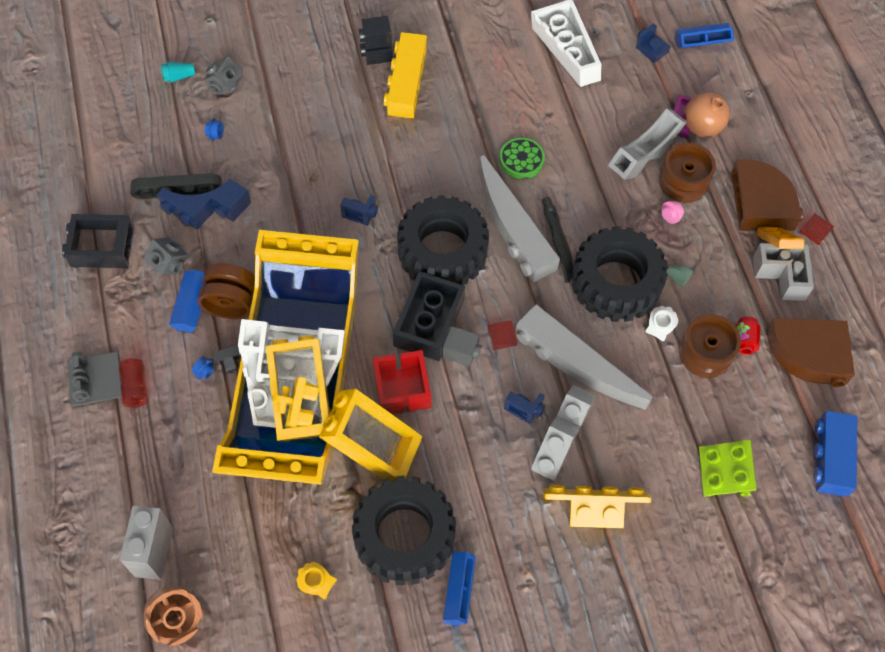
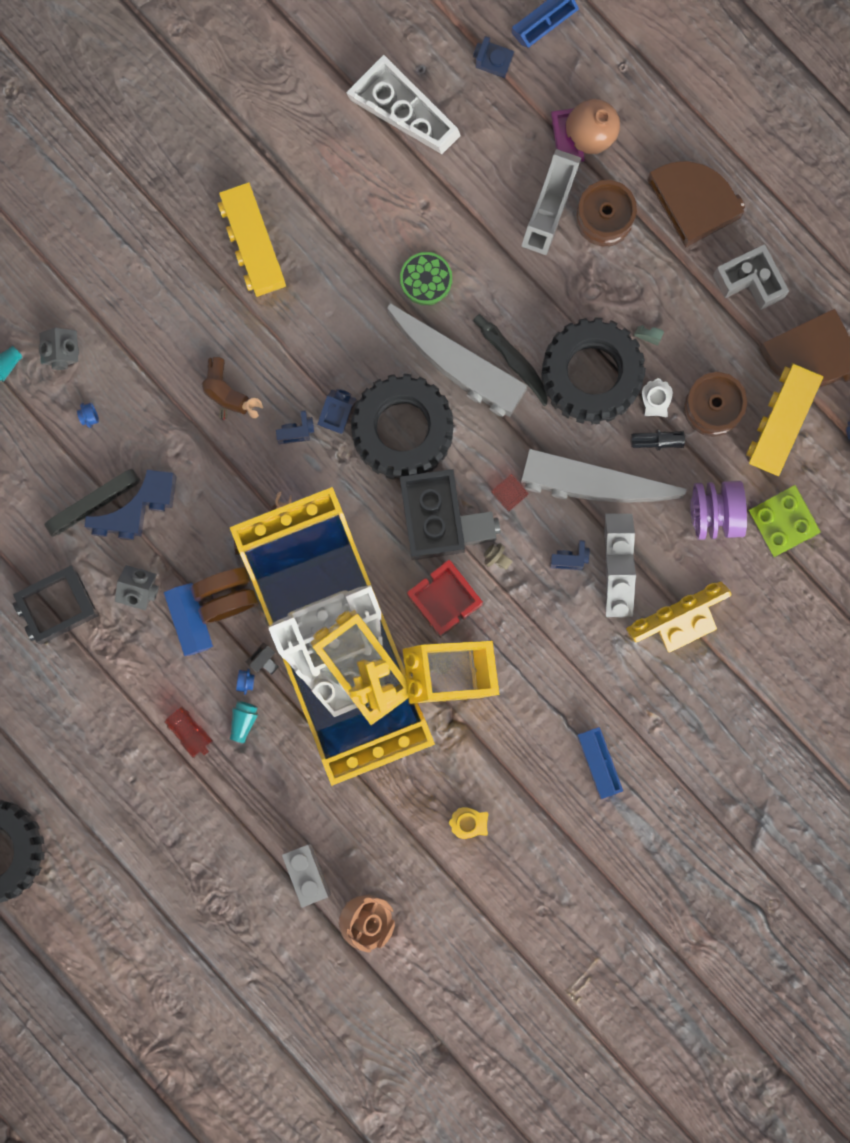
camera: 25 degrees left, 20 degrees up
(93, 378) = (146, 746): dark grey hinge -> none
(182, 396) = (242, 720): none -> teal cone
(319, 158) = (222, 394): none -> reddish brown arm
(376, 40) = (198, 218): black piece -> none
(395, 209) = (336, 410): none -> dark blue bracket
(404, 496) = (561, 728): black tyre -> none
(463, 373) = (494, 555): none -> dark tan plate
(647, 353) = (658, 440): none -> black axle
(672, 211) = (610, 265): bright pink plate -> none
(673, 426) = (717, 510): none -> medium lavender wheel
(750, 335) = (745, 369): red brick -> none
(765, 383) = (785, 418): none -> yellow brick
(780, 237) = (733, 249): light orange tile -> none
(816, 229) = (762, 207): clear red tile -> none

